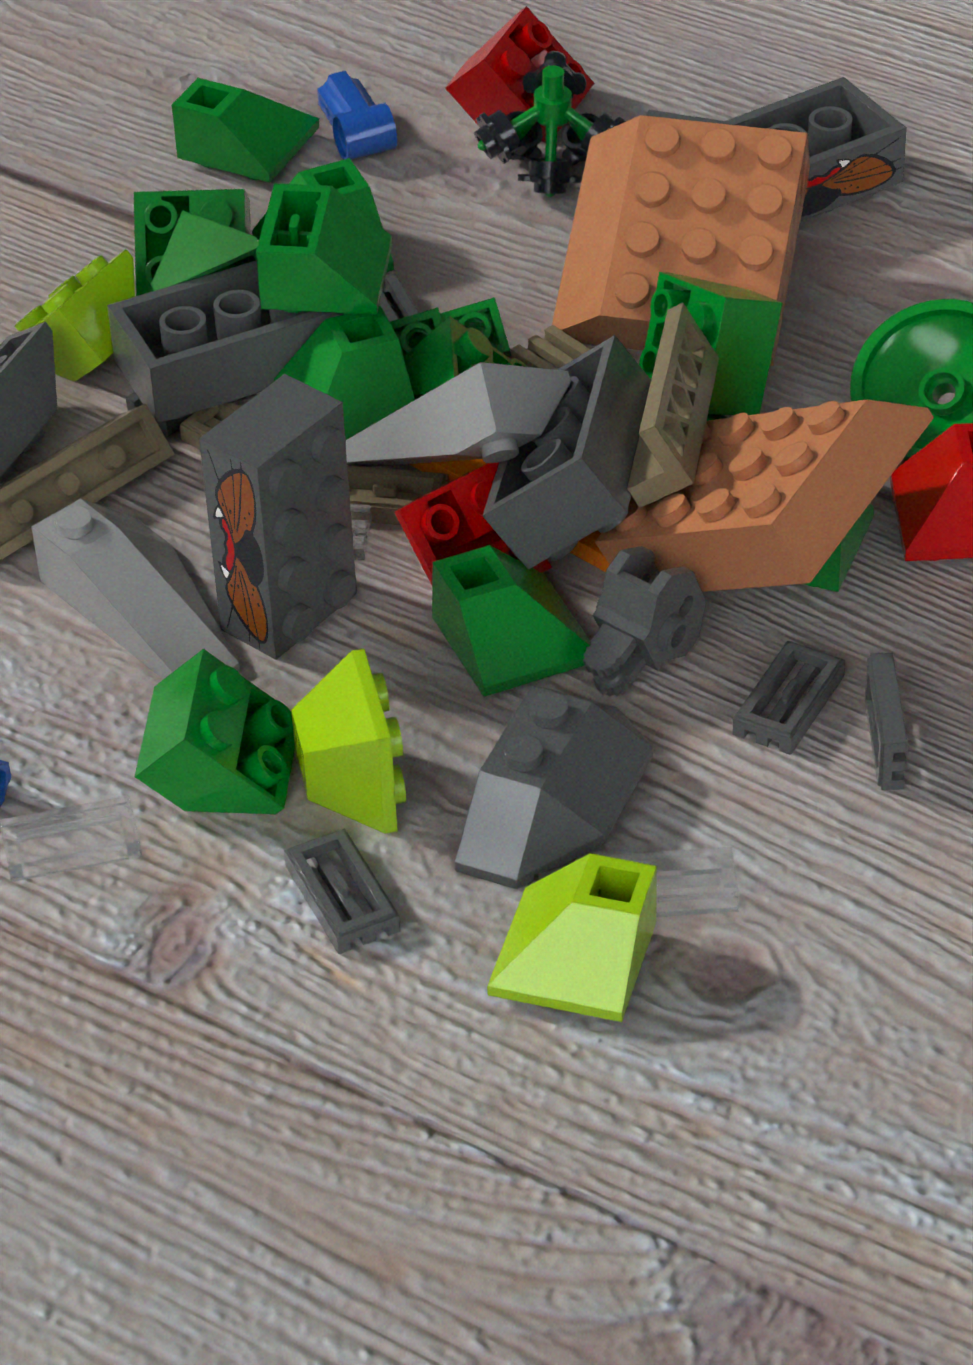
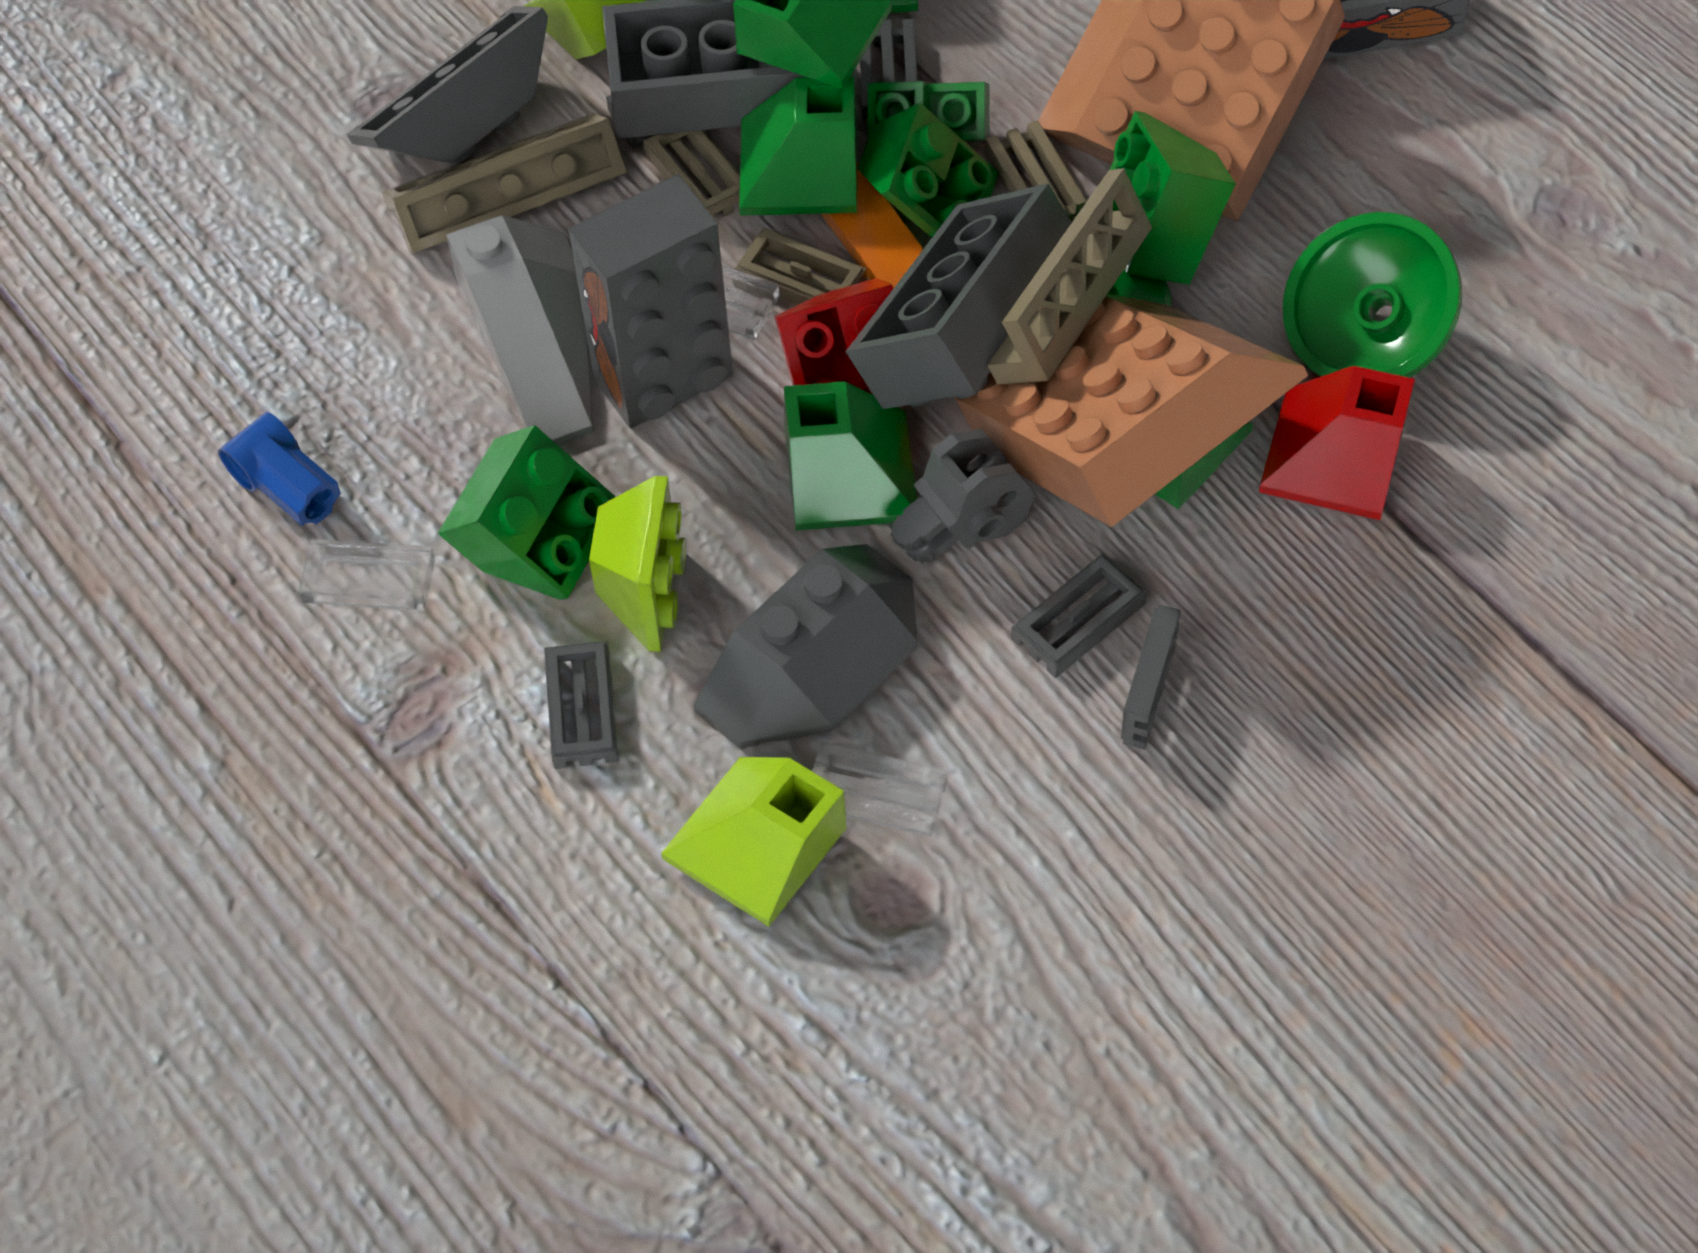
camera: 20 degrees right, 15 degrees up
(470, 417) = (878, 238): light grey wedge -> none

